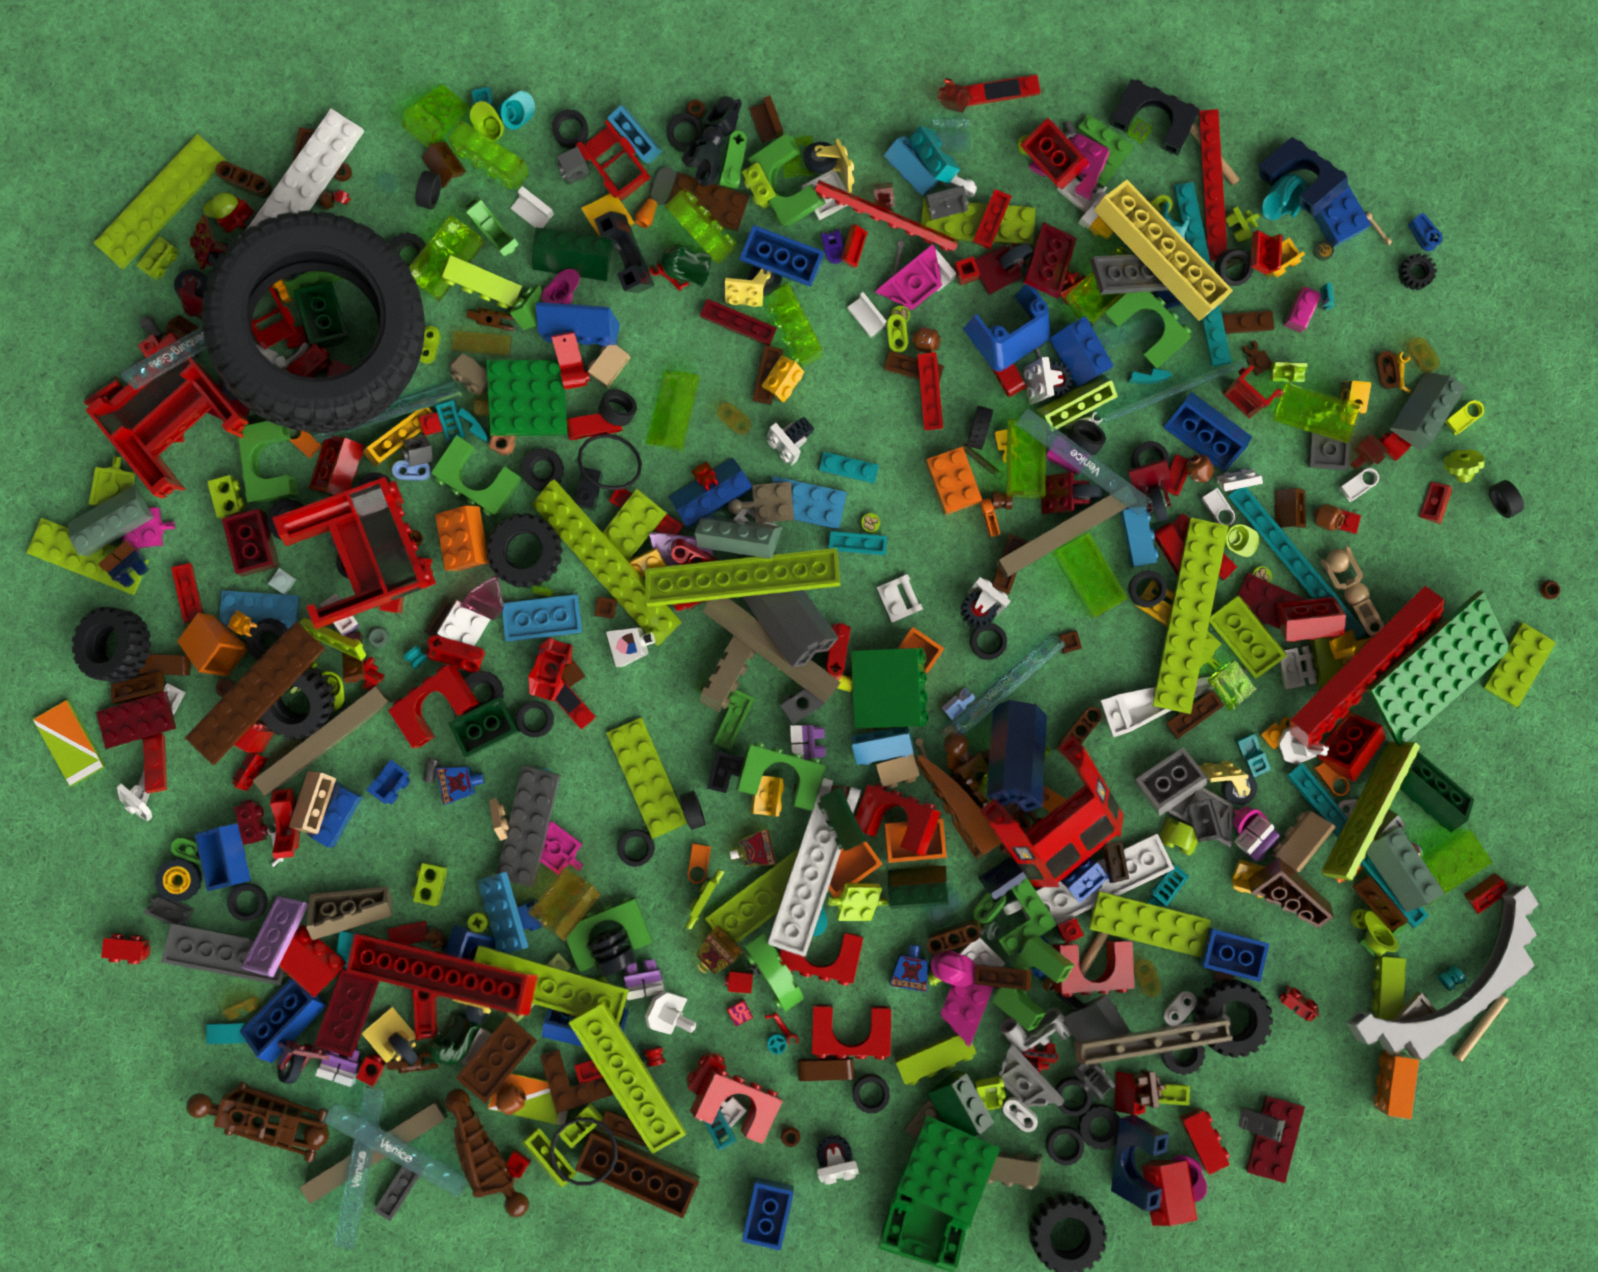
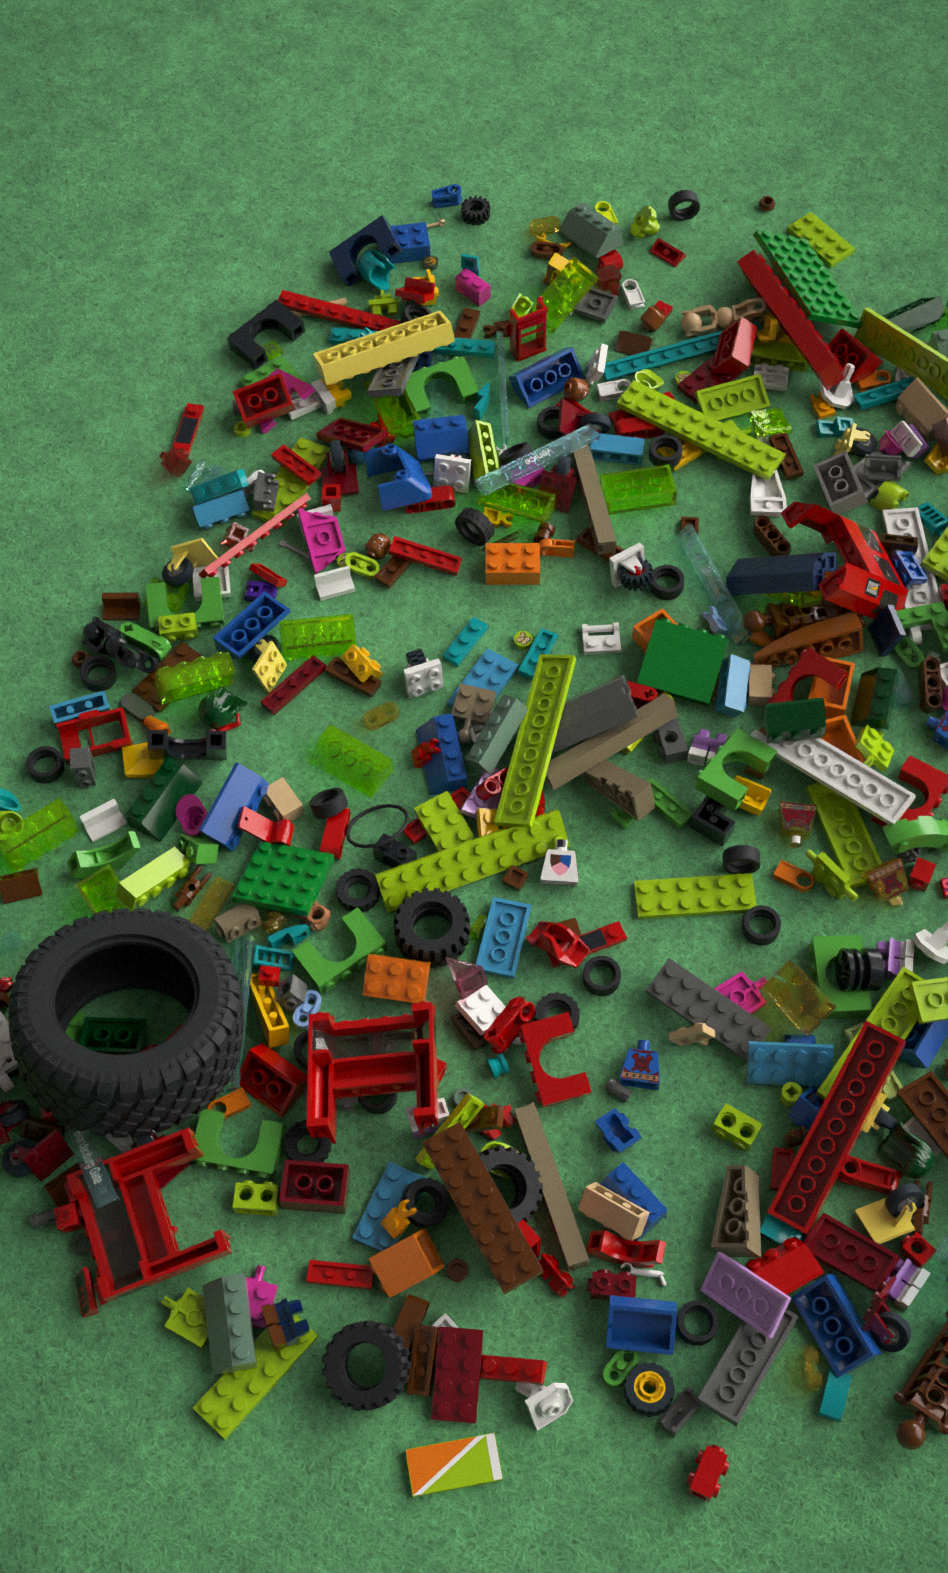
camera: 65 degrees left, 25 degrees down
(282, 581) = (367, 1174): light aqua plate -> none
(428, 190) = (40, 899): black tyre -> none
(483, 727) = (595, 1020): dark green slope -> none

